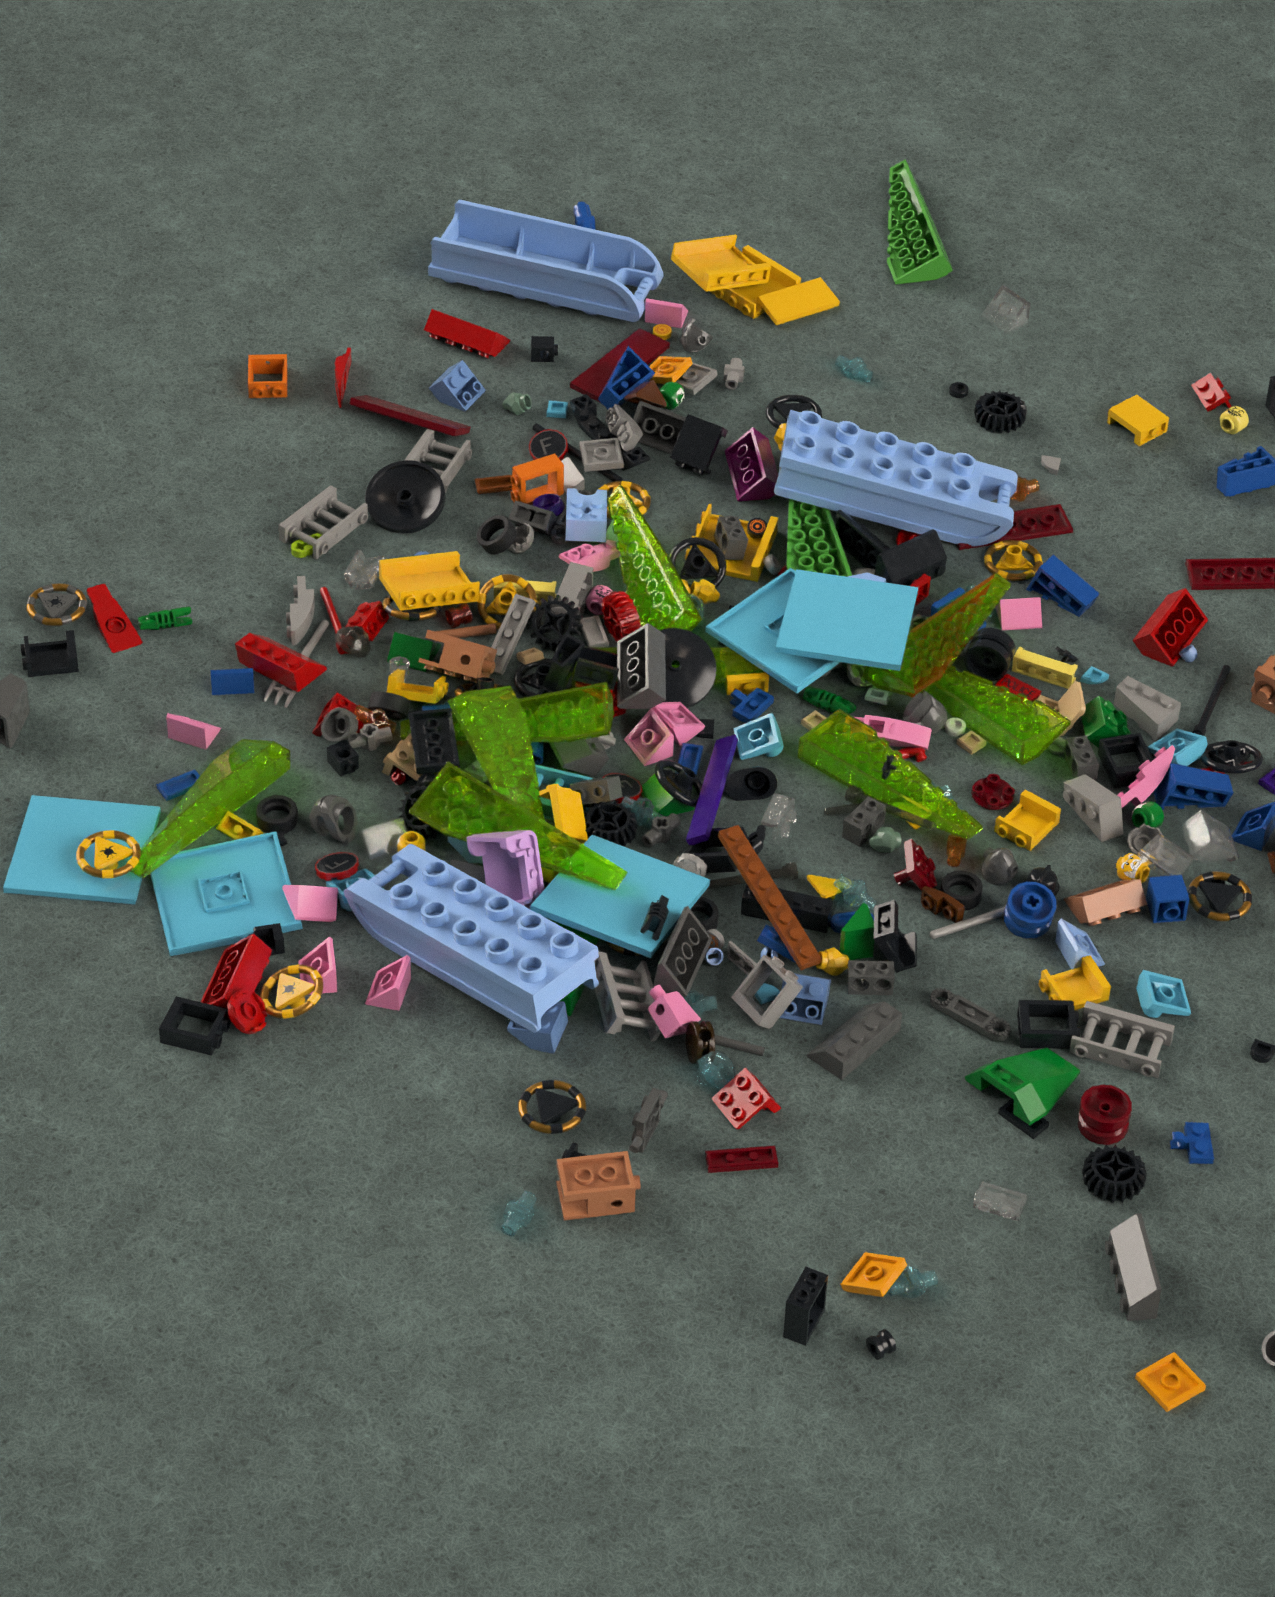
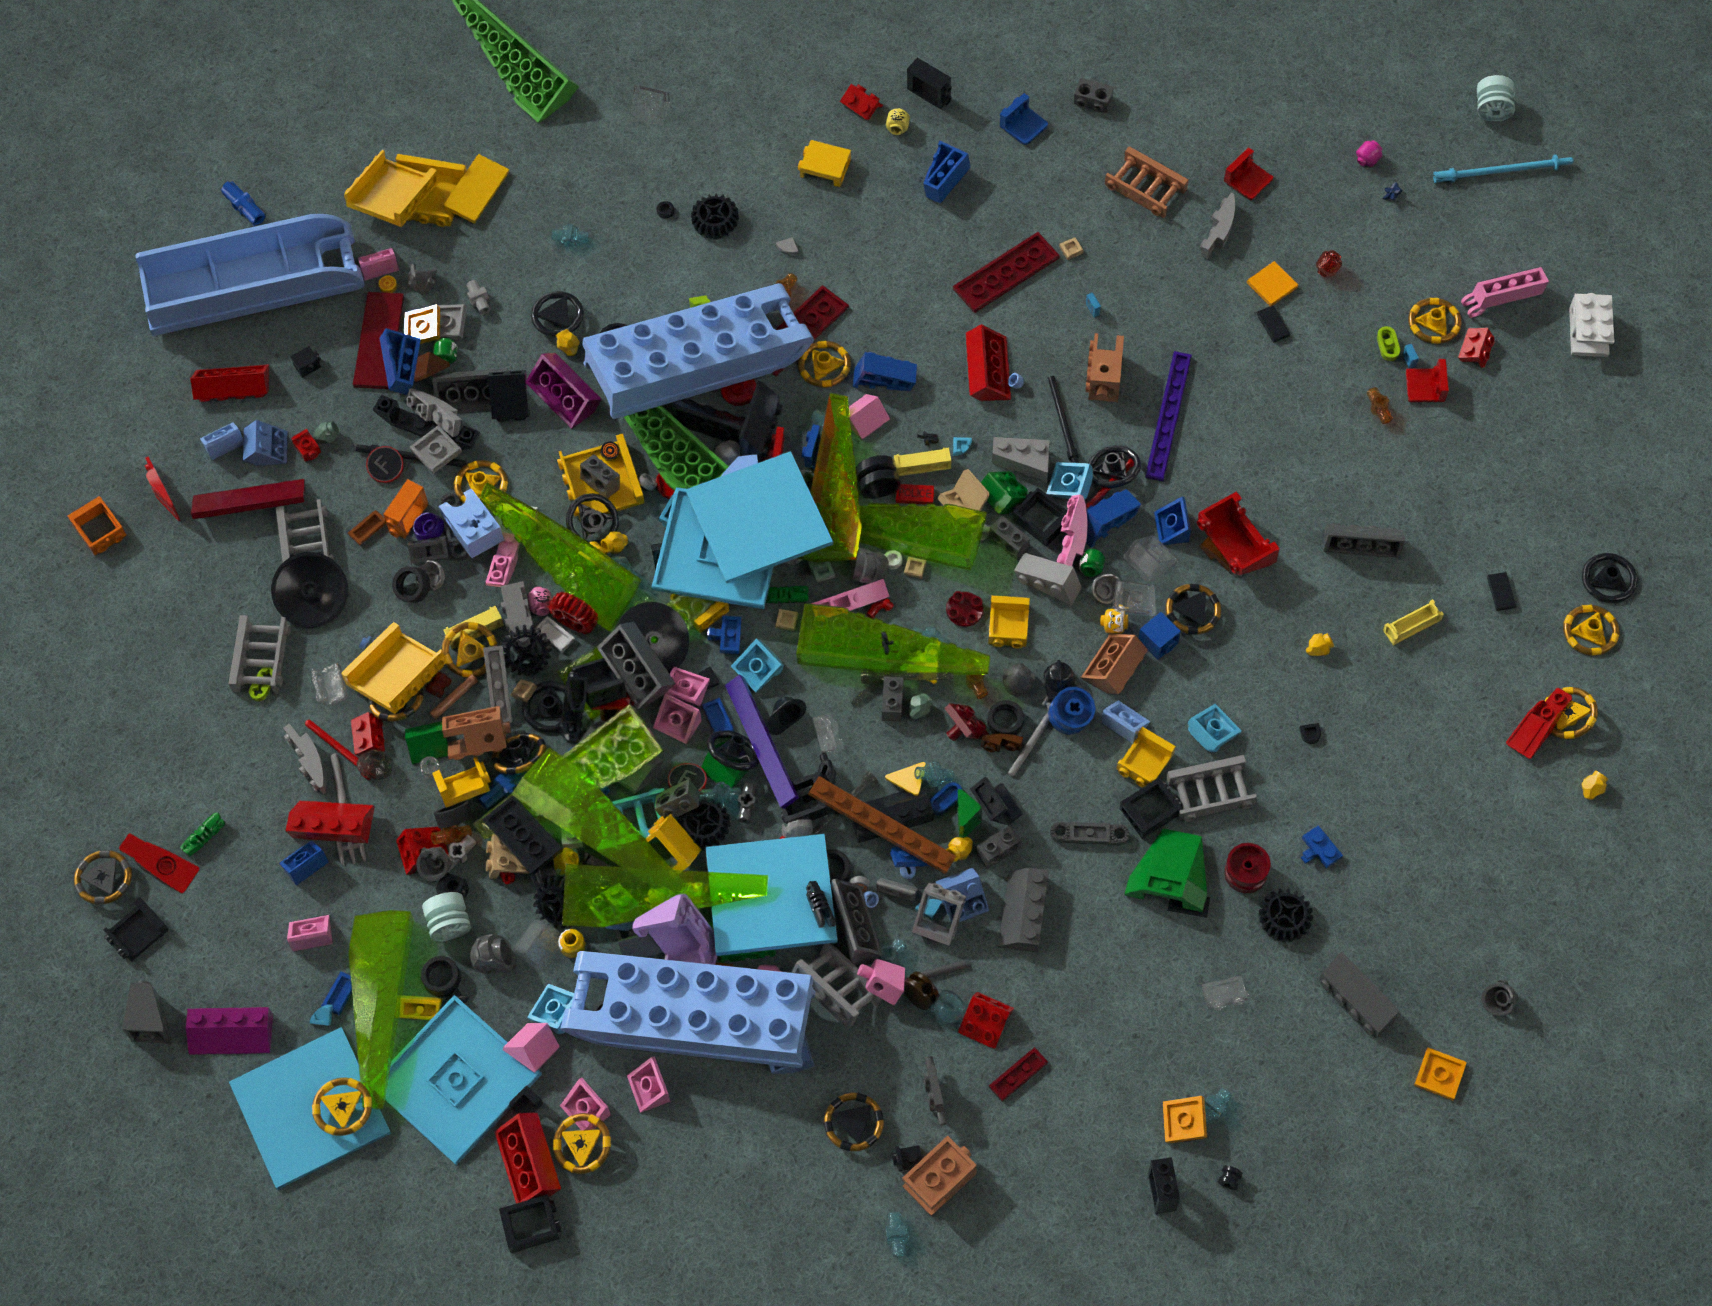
camera: 30 degrees left, 20 degrees up
(64, 759) = (229, 1030): none -> magenta slope
(152, 791) = (322, 1016): none -> medium azure tile
(247, 1011) = (562, 1185): red tile -> none
(318, 770) = (446, 916): none -> light aqua wheel
(337, 865) = (525, 997): tile -> none
(423, 369) = (222, 441): none -> light blue slope
(492, 403) = (306, 445): none -> red brick
(557, 409) = (361, 418): medium azure tile -> none
(572, 476) = (431, 487): slope -> none

